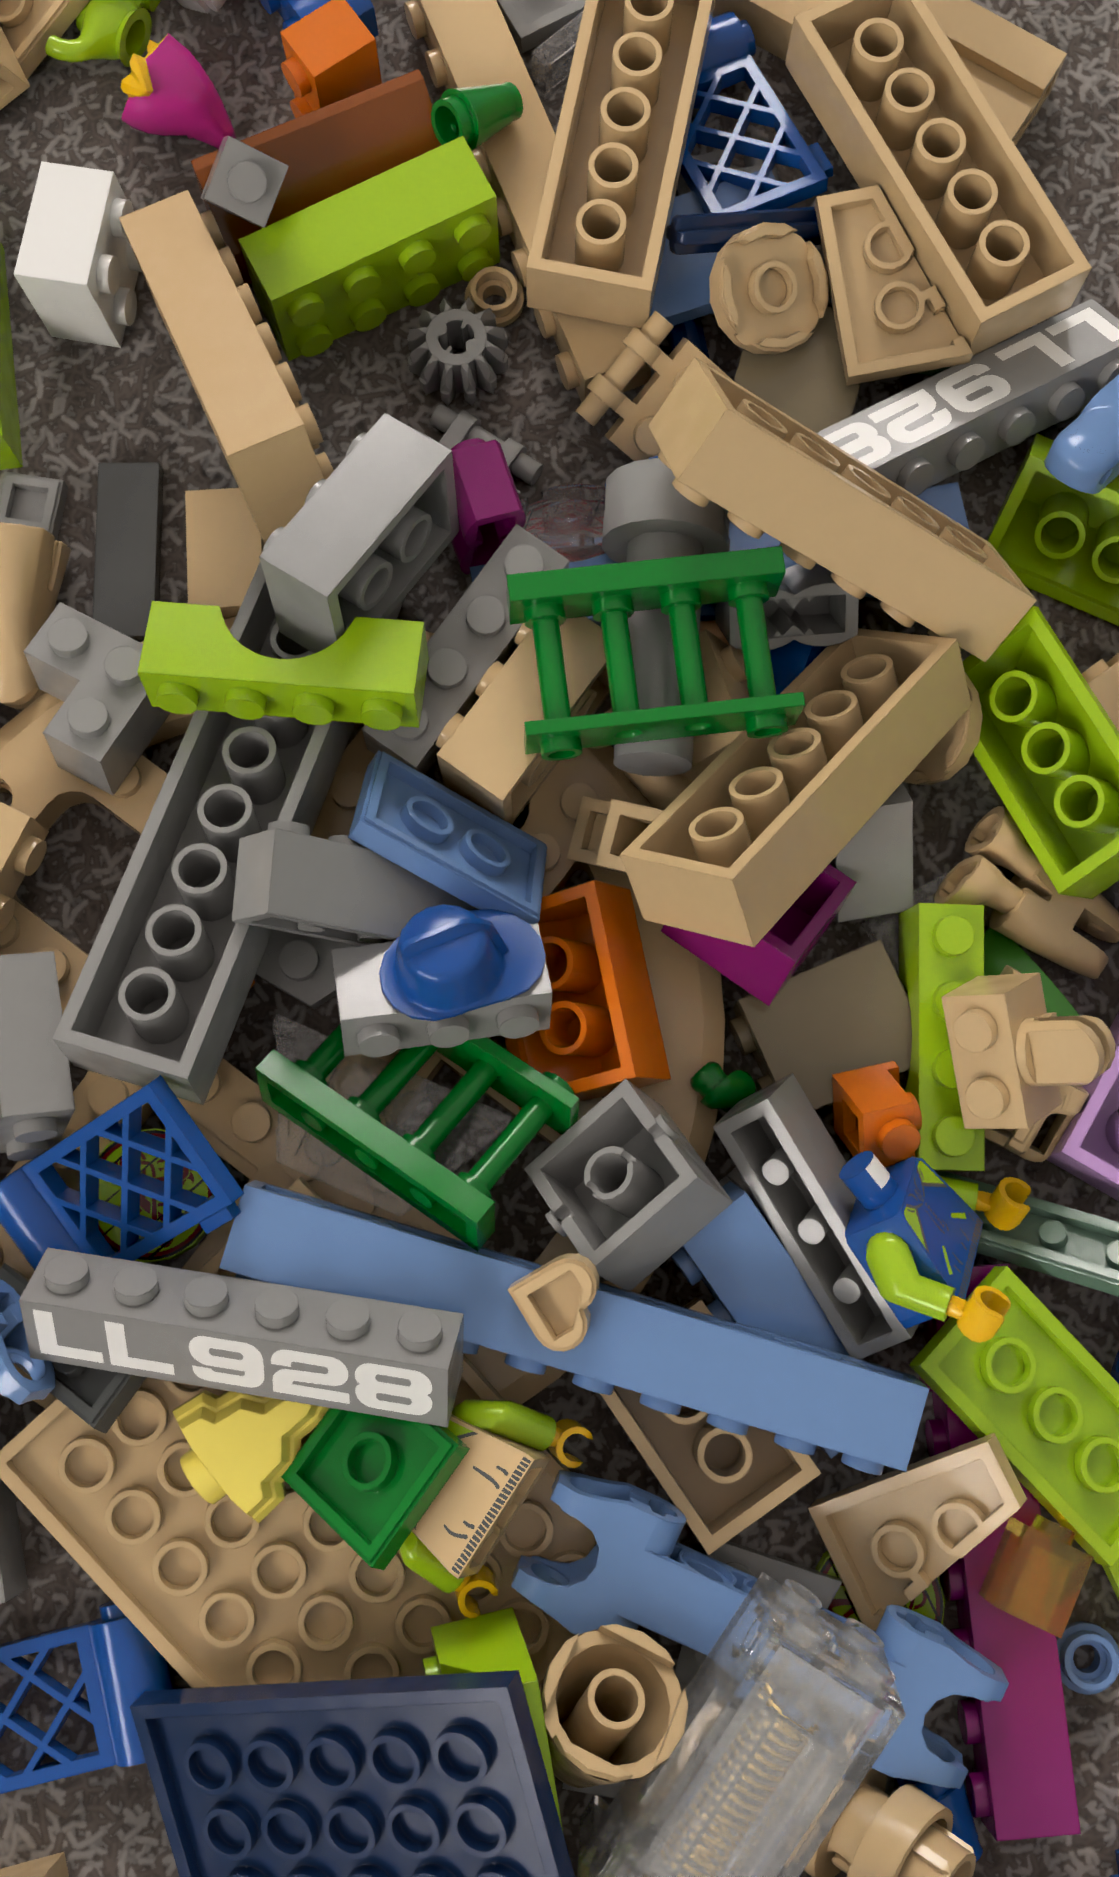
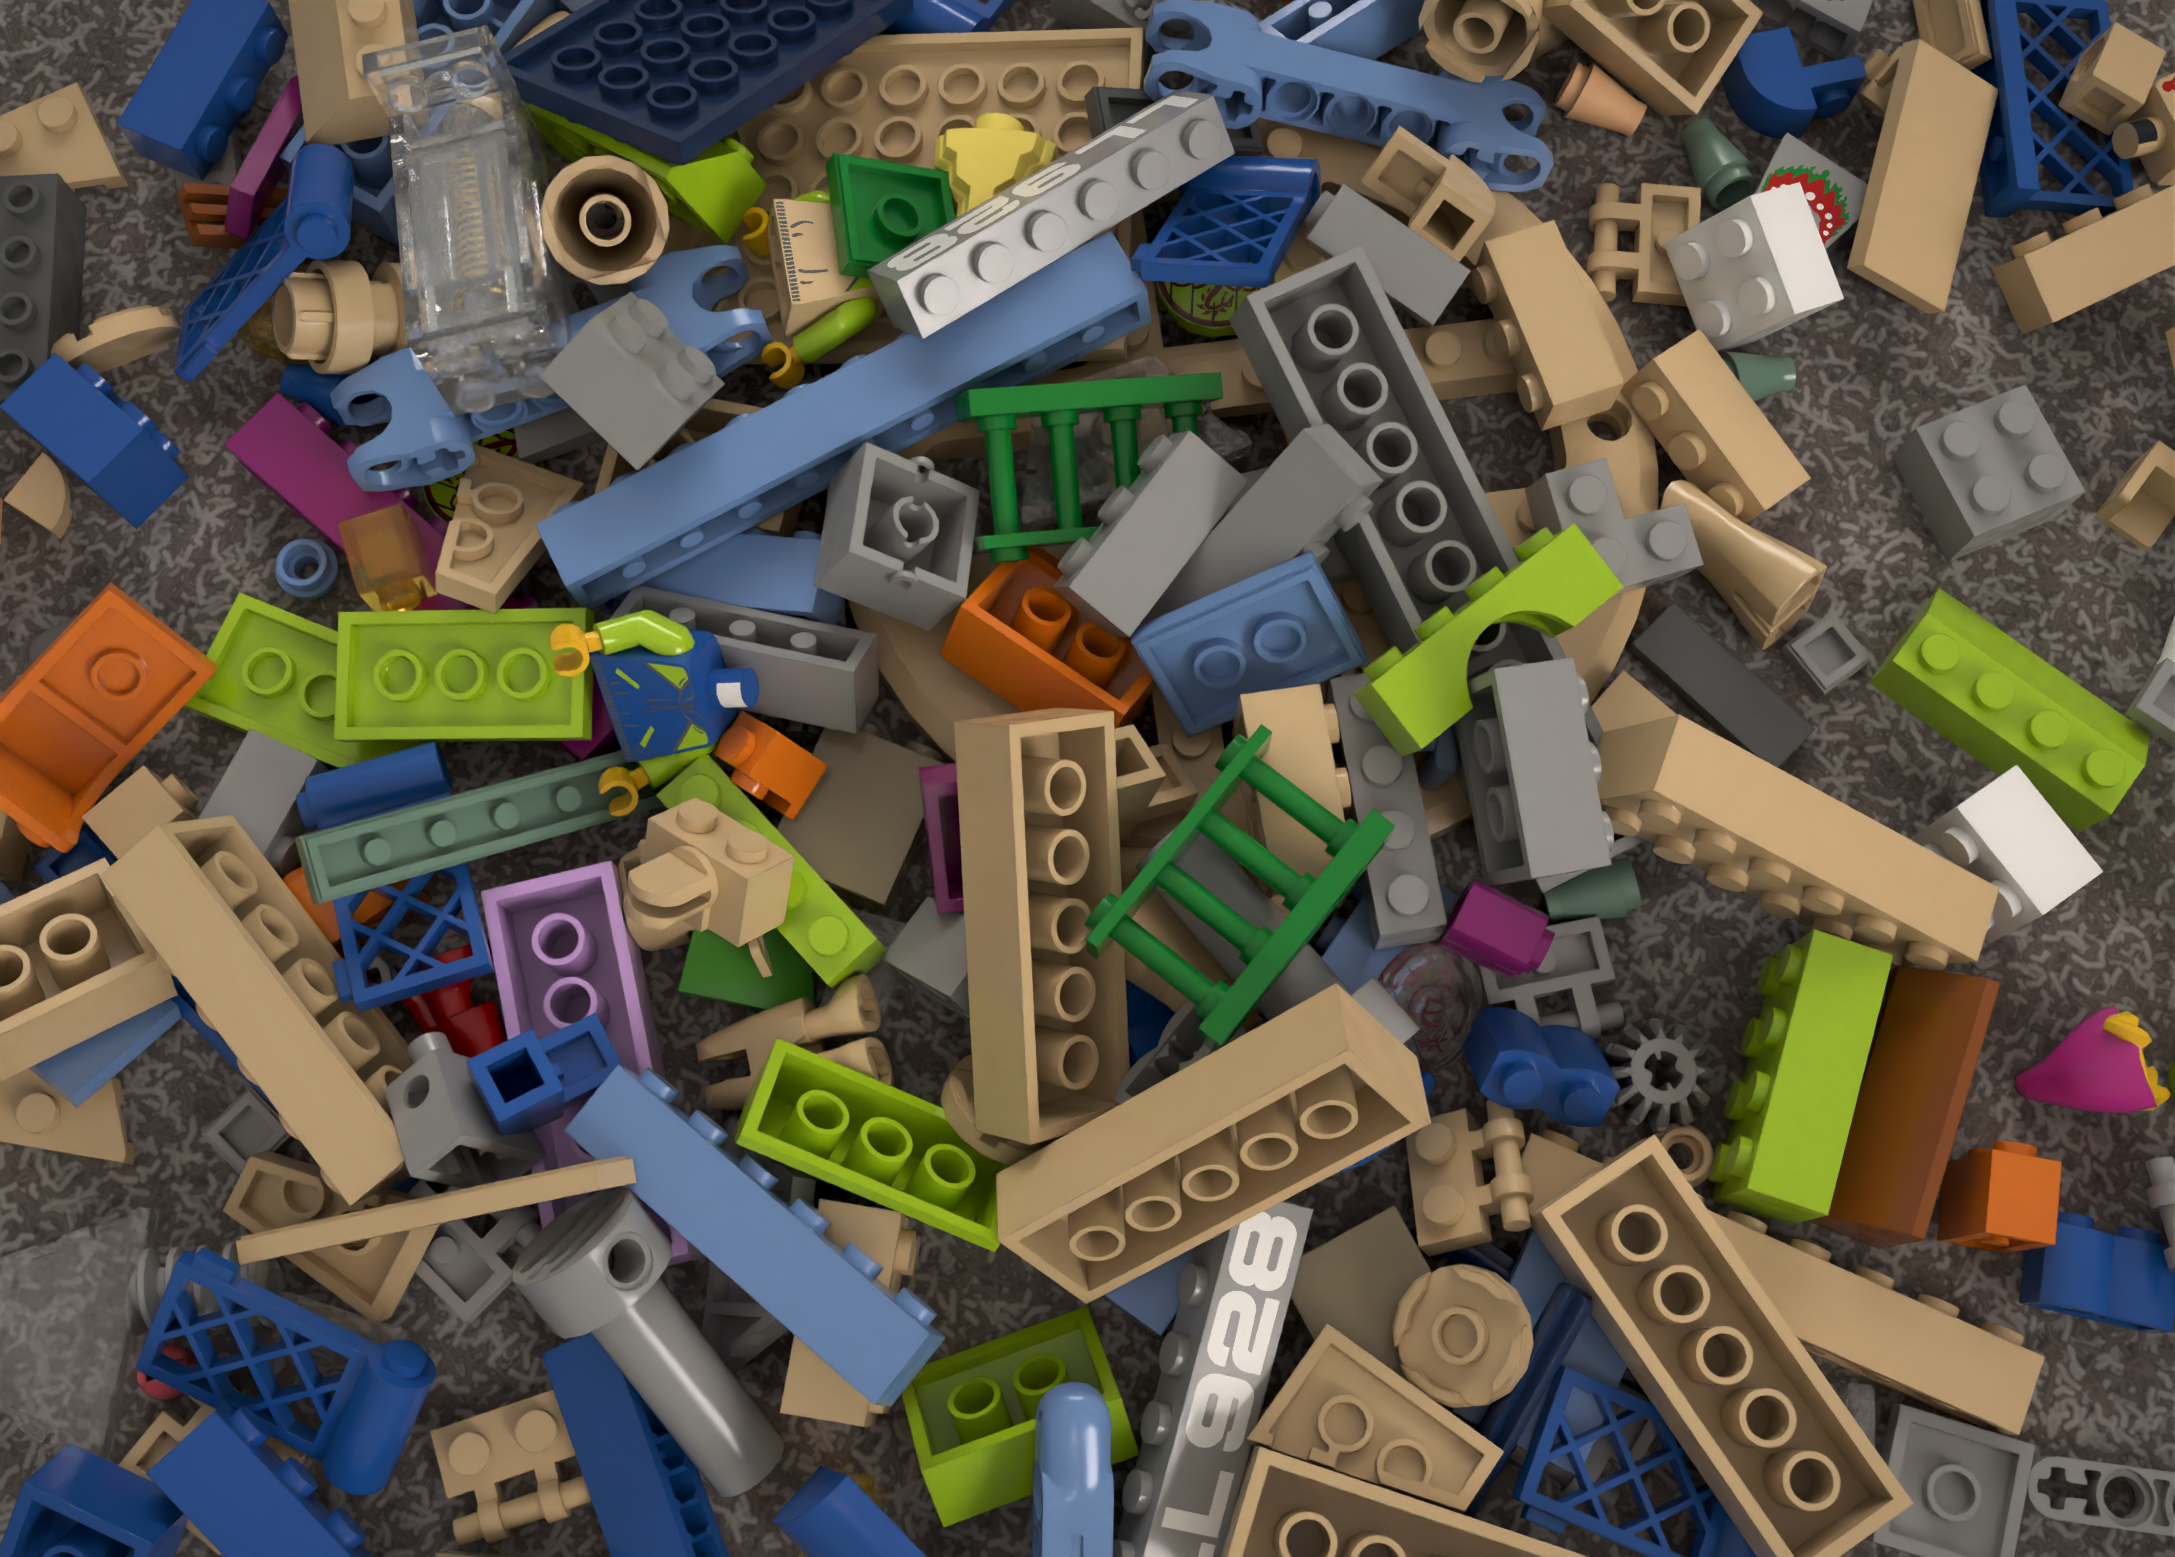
camera: 135 degrees right, 5 degrees down
(244, 181) = (1937, 996): light grey brick -> none
(459, 961) = (1149, 550): blue piece -> none
(475, 112) = (1845, 1261): green cone -> none
(534, 413) = (1540, 1067): none -> blue brick
(557, 1300) = (870, 404): tan tile -> none
(719, 1089) = (898, 689): green arm -> none
(726, 1514) = (633, 378): none -> light grey brick

